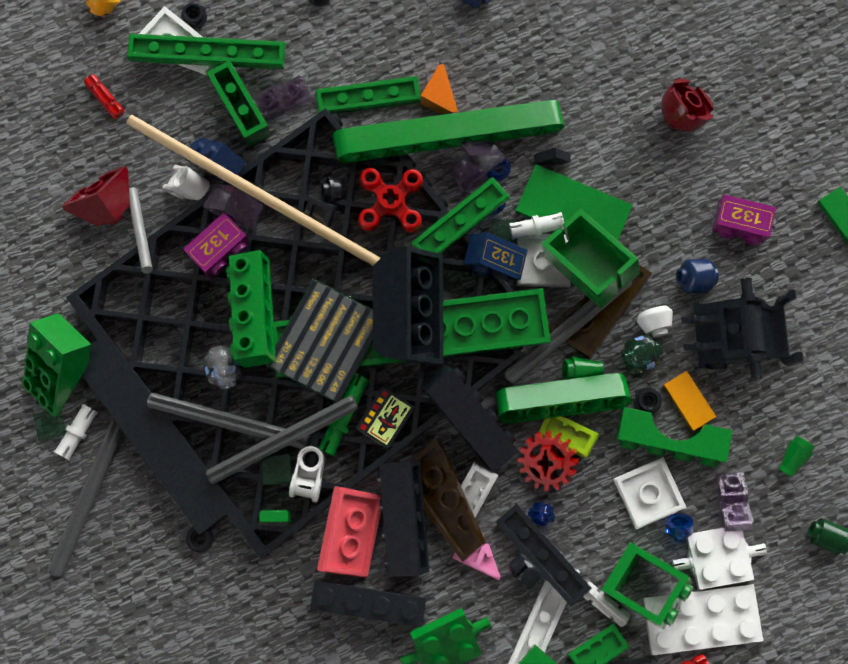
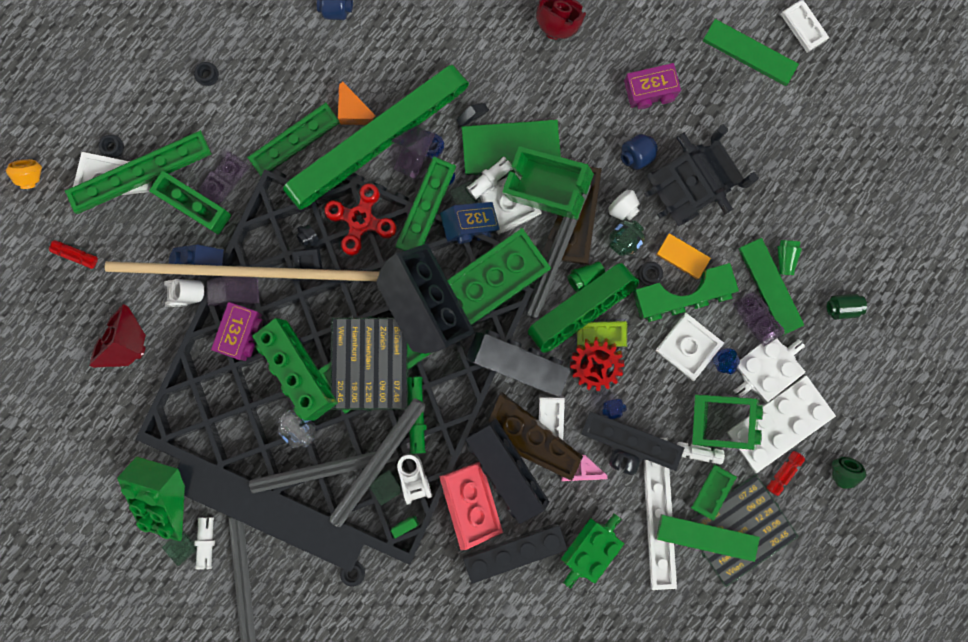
camera: 30 degrees left, 5 degrees up
(139, 230) = (165, 351): light grey bar -> none
(385, 417) = (450, 399): piece -> none
(763, 476) = (771, 285): none -> green tile

